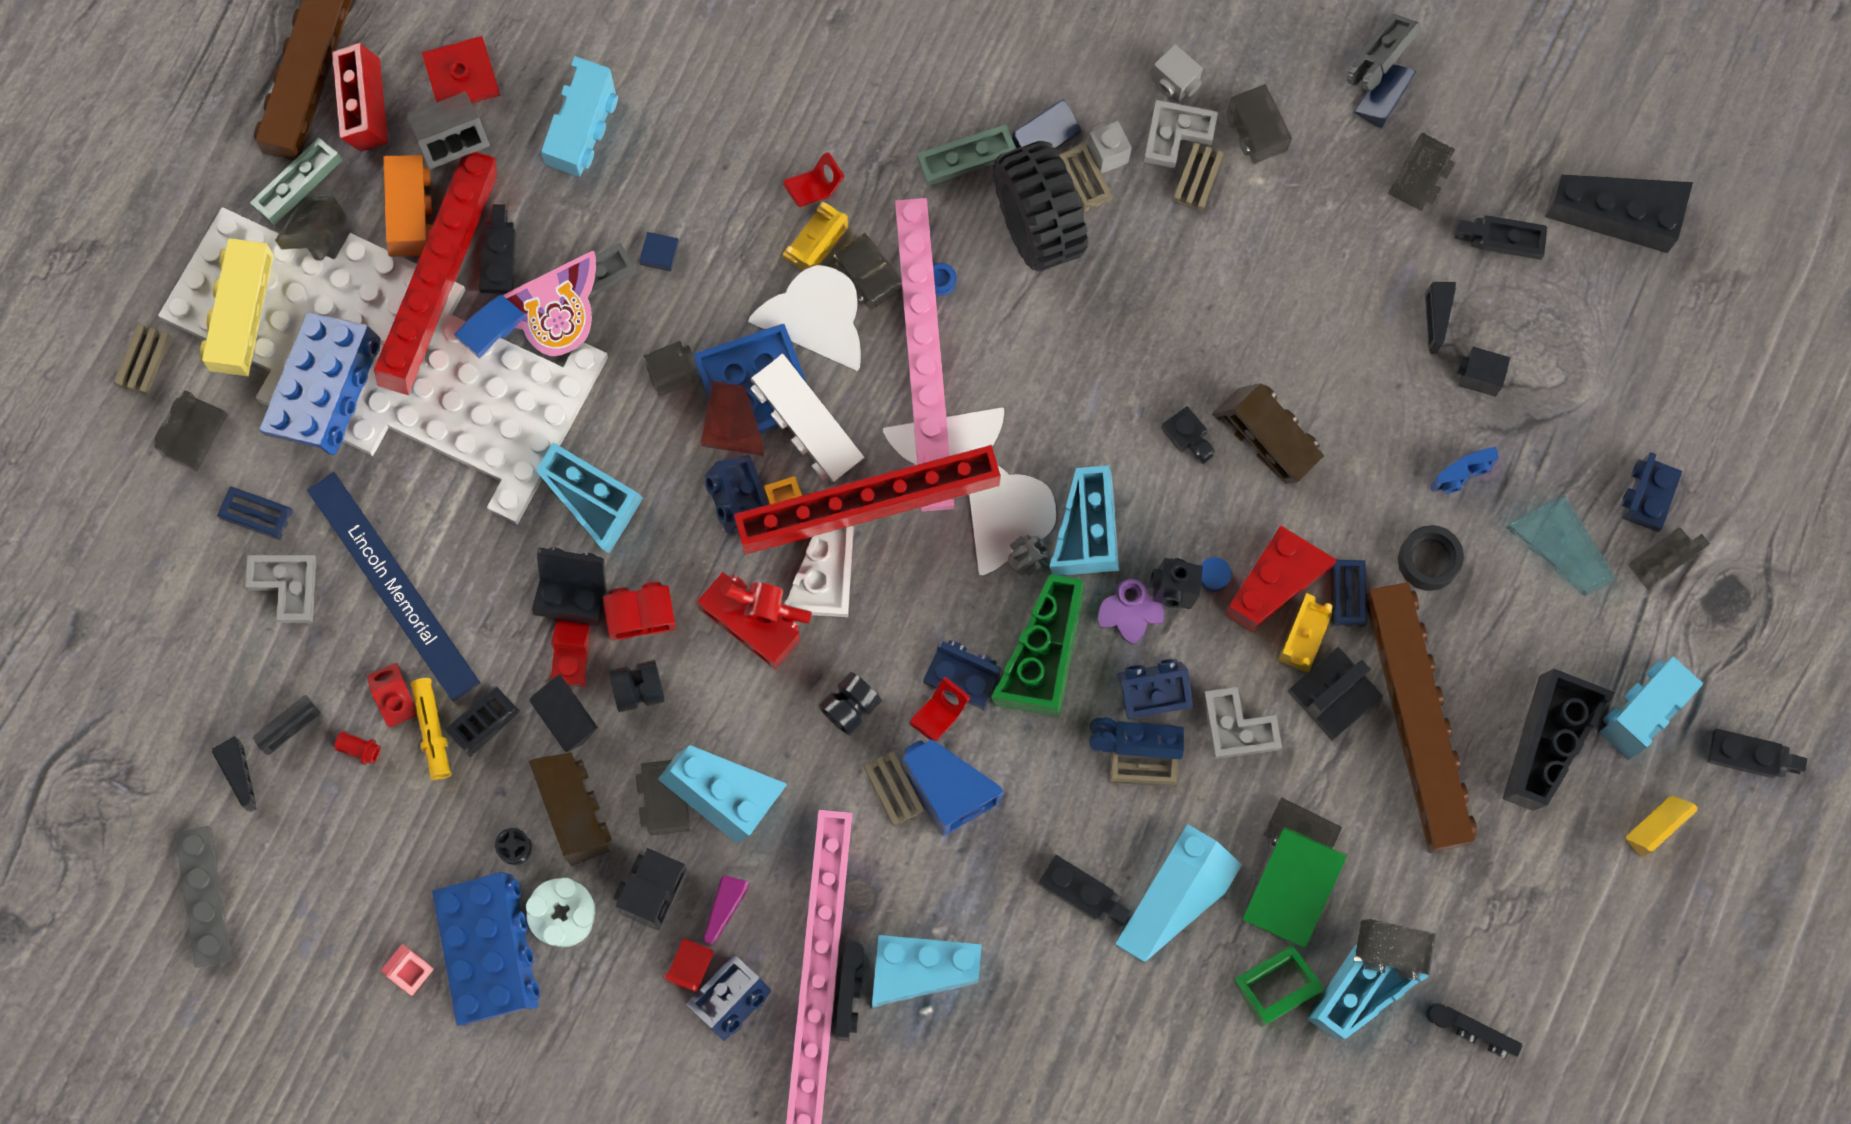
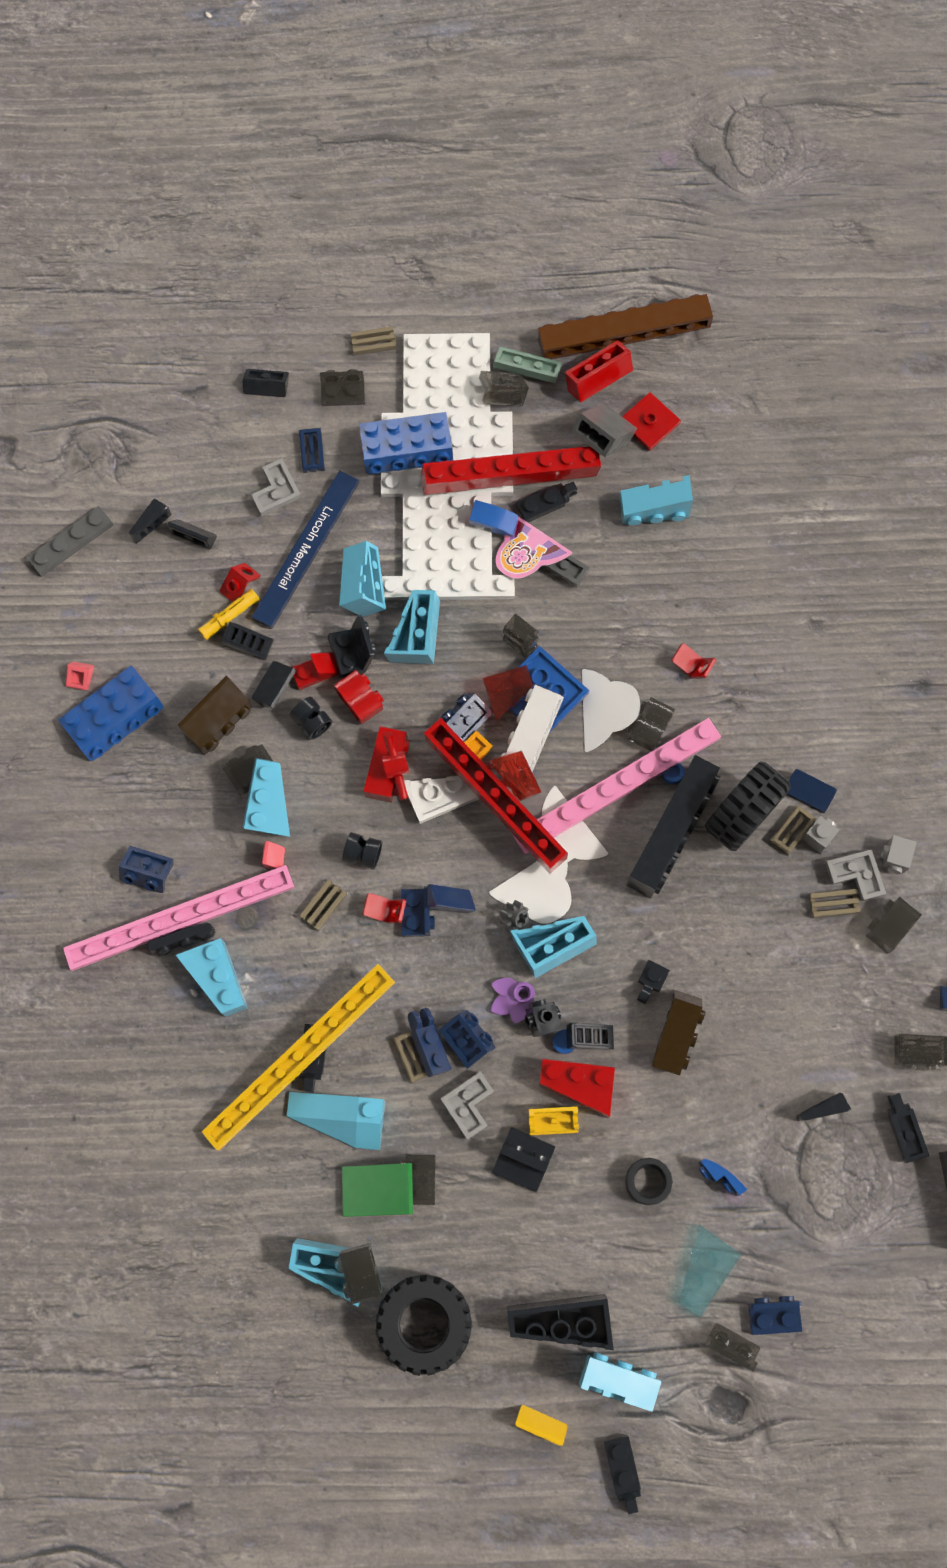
camera: 70 degrees right, 0 degrees up
(120, 528) = (265, 382): none -> black slope
(237, 307) = (428, 372): light yellow brick -> none
(357, 747) = (197, 579): red pin -> none
(406, 204) = (544, 431): orange brick -> none
(481, 530) = (362, 580): none -> medium azure wedge
(511, 840) = (177, 692): black wheel -> none
(580, 916) = (156, 757): light aqua plate -> none
(651, 890) = (186, 790): black brick -> none
(659, 251) = (598, 593): dark blue tile -> none
(689, 966) = (152, 836): red bracket -> none
(728, 898) = (204, 837): magenta slope -> none
(796, 822) = (273, 855): none -> coral slope
(817, 237) = (657, 683): yellow hinge -> none
(857, 458) = (516, 775): none -> clear red wing
(948, 785) = (335, 935): blue slope -> none
(964, 155) = (765, 747): sand green plate -> none
(969, 623) = (450, 899): none -> dark blue slope
(1015, 308) = (670, 831): none -> black brick
(1041, 662) = (456, 955): green wedge -> none
(1082, 908) = (298, 1057): none -> yellow plate
(1218, 559) = (572, 1036): none -> black slope
(1267, 1015) = (302, 1222): green tile -> none
(1349, 620) = (578, 1146): dark blue tile -> none
(1419, 717) = (533, 1223): reddish brown brick -> none
(1470, 1030) = (339, 1355): black hinge -> none
(1483, 371) = (799, 1157): black brick -> none
(1521, 881) = (389, 1331): none -> black tyre

